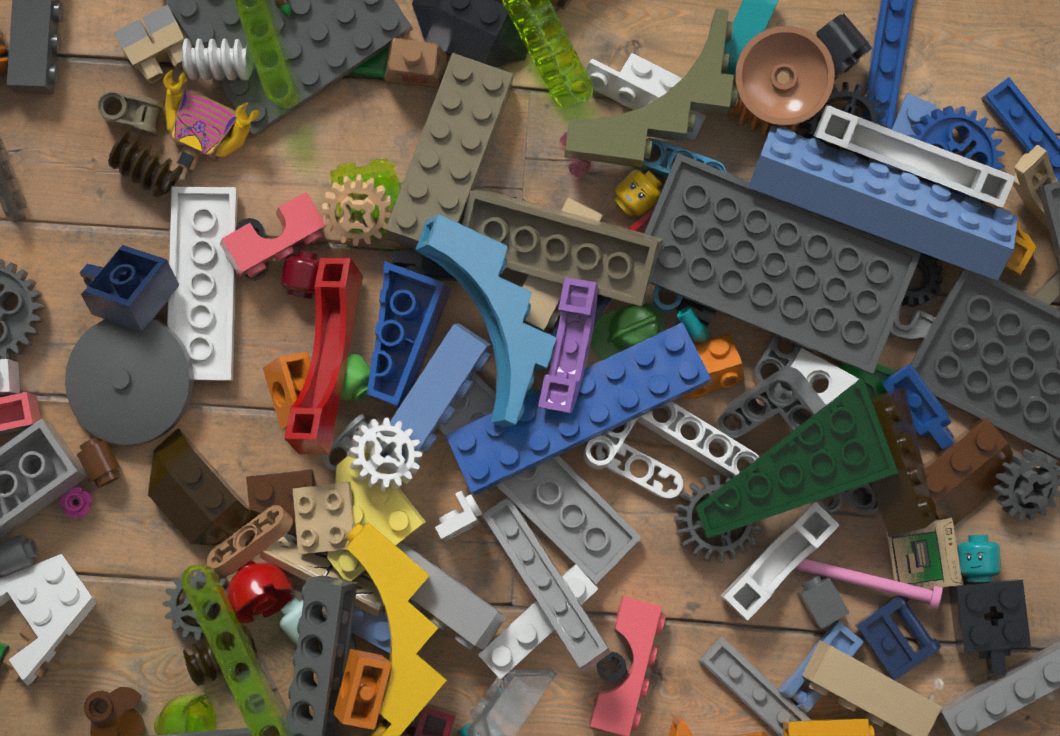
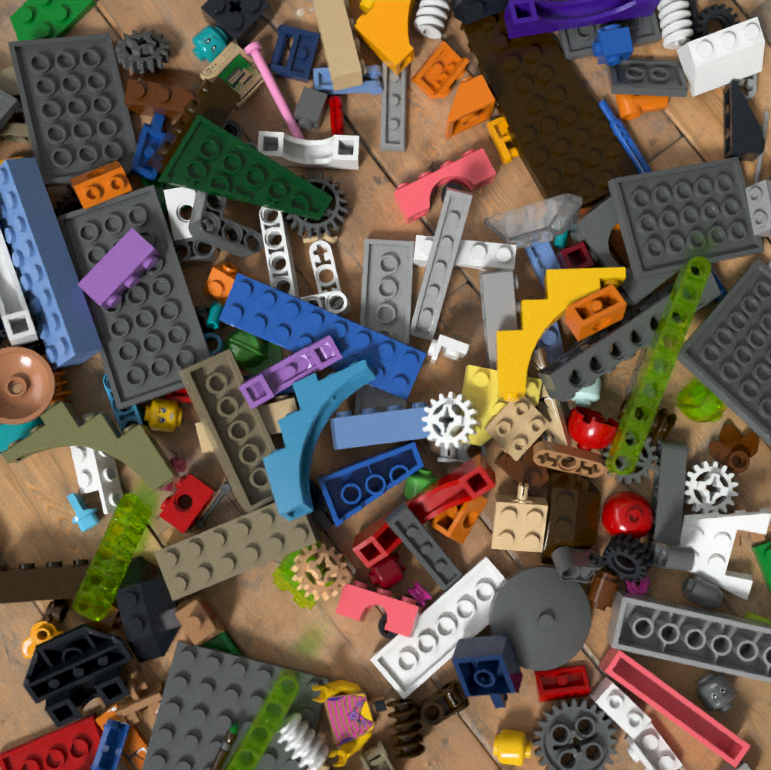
camera: 135 degrees left, 0 degrees up
(38, 247) = (512, 747): none -> yellow head
(51, 347) = (562, 683): none -> red slope
(82, 555) = (668, 508): none -> dark grey beam
(106, 665) = (711, 478): none -> white gear
(107, 512) = (628, 557): none -> black tyre
(133, 221) = (445, 703): none -> dark brown piece
(145, 458) = (576, 563): none -> dark grey piece
(146, 550) = (627, 514): none -> red cylinder
(235, 441) = (519, 521): none -> tan plate
(253, 287) = (419, 594): none -> dark pink bush
(292, 327) = (423, 546): none -> dark grey tile
(458, 696) = (542, 258): none -> medium blue plate
(505, 141) = (225, 489): none -> dark grey hinge
(532, 125) = (201, 495): none -> red brick
(606, 38) = (85, 517): none -> medium azure piece
(678, 500) = (330, 240): none -> tan hand
(790, 619) = (336, 115): none -> red axle
(810, 267) = (119, 269): none -> medium lavender brick
(918, 323) = (101, 184): none -> orange brick

